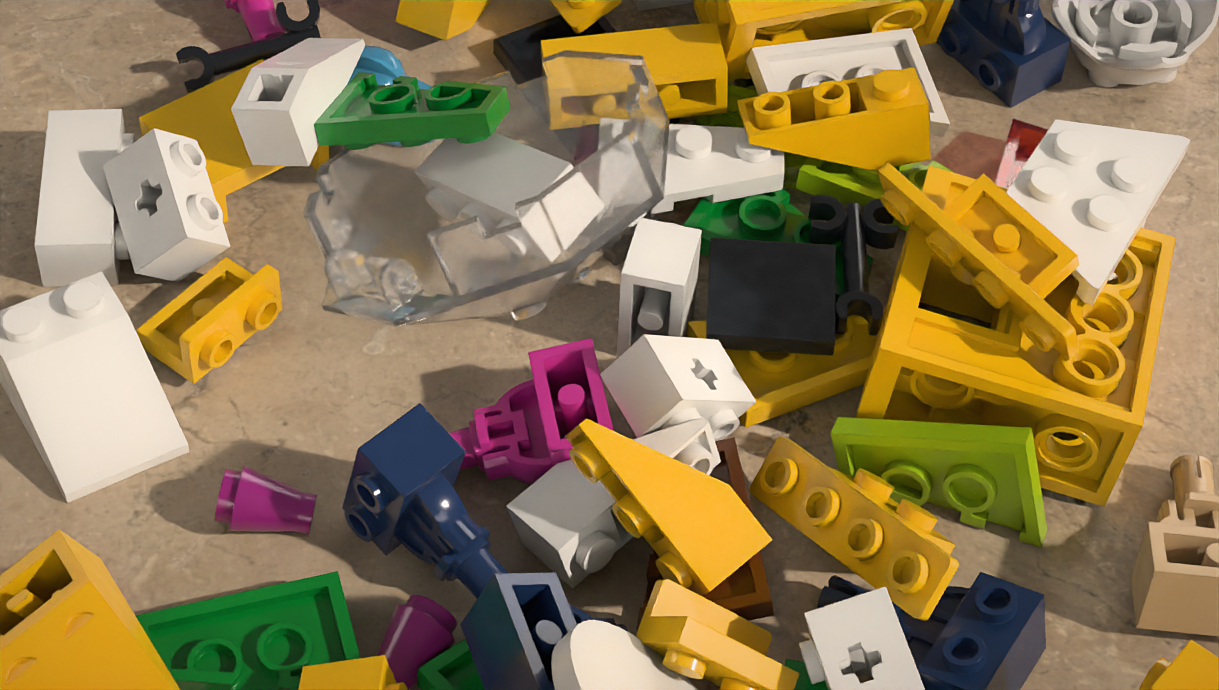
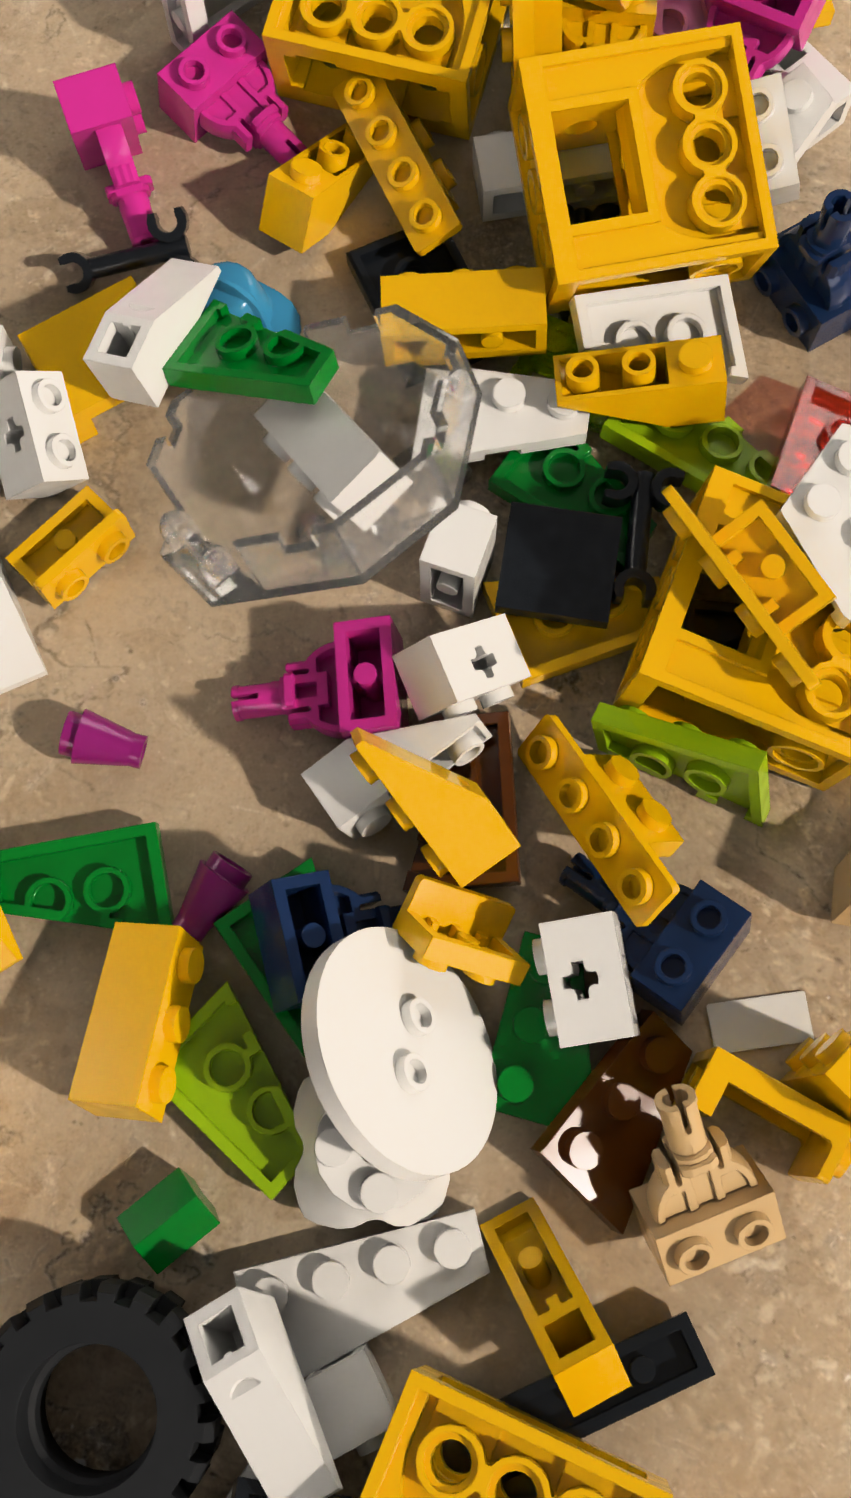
camera: 10 degrees right, 25 degrees up
(407, 497) = (212, 751): dark blue brick -> none

